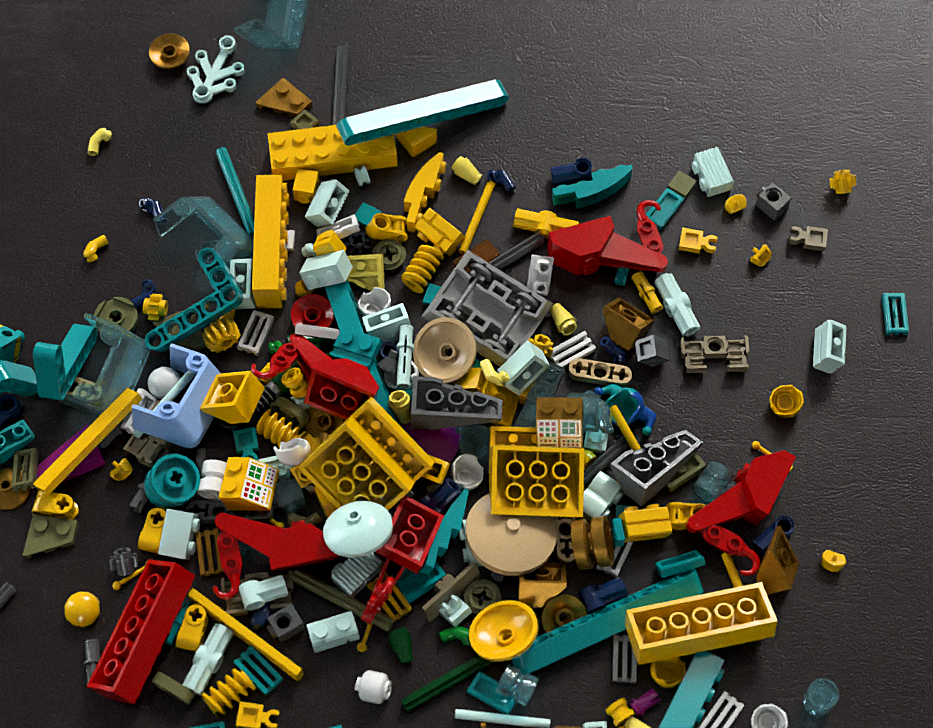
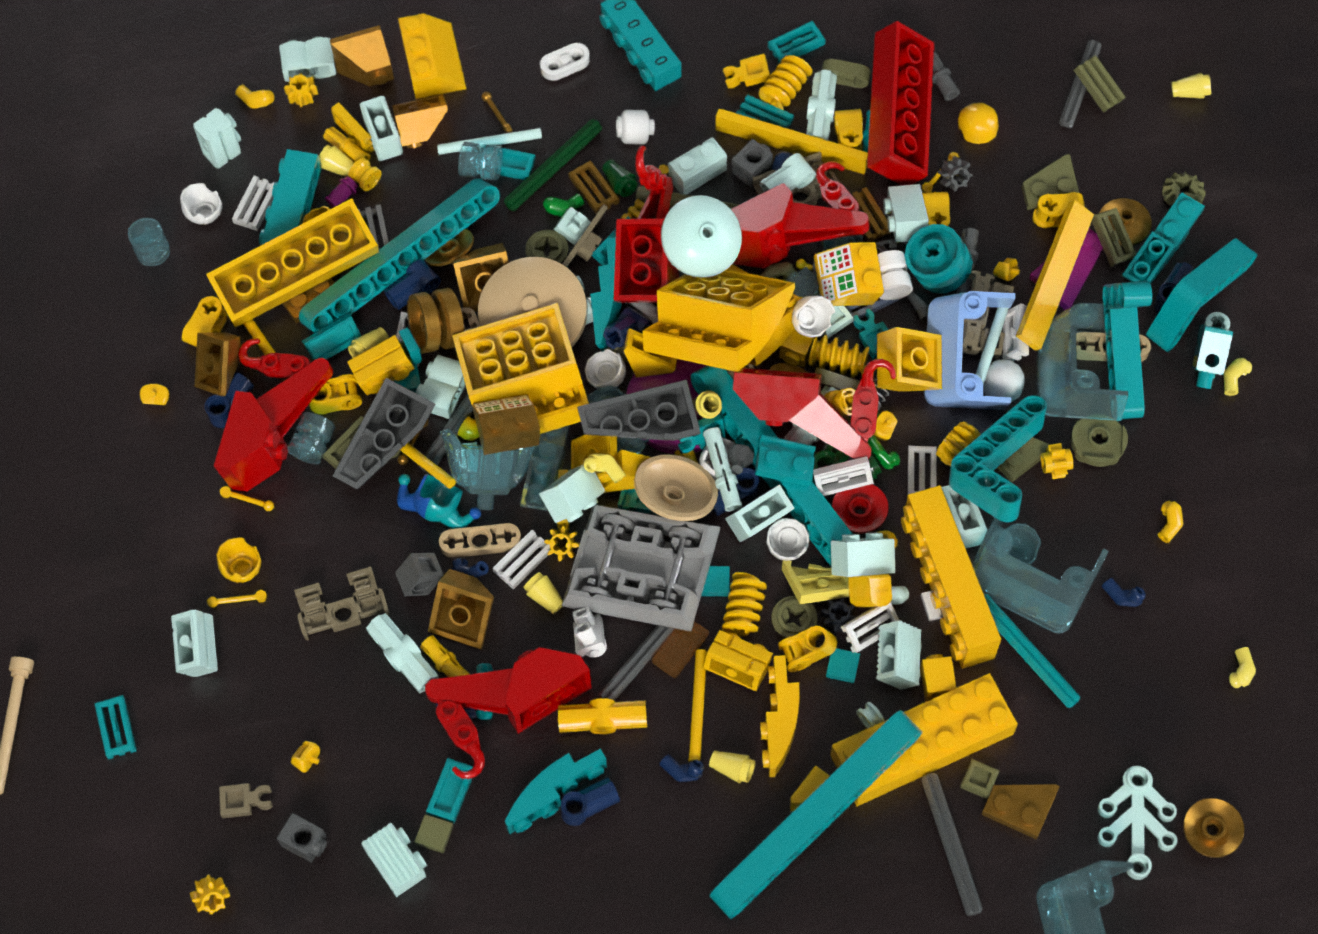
camera: 165 degrees right, 0 degrees up
(148, 288) = (1075, 479): dark blue arm -> none
(431, 665) = (613, 198): none -> pearl gold tile
(501, 622) = (520, 194): yellow dish -> none
(650, 552) = (367, 341): none -> light yellow cone
(693, 241) = (400, 750): yellow plate -> none
(735, 203) = (354, 824): yellow piece -> none
(774, 379) = (260, 596): none -> yellow hinge
(785, 606) = (205, 320): none -> yellow piece

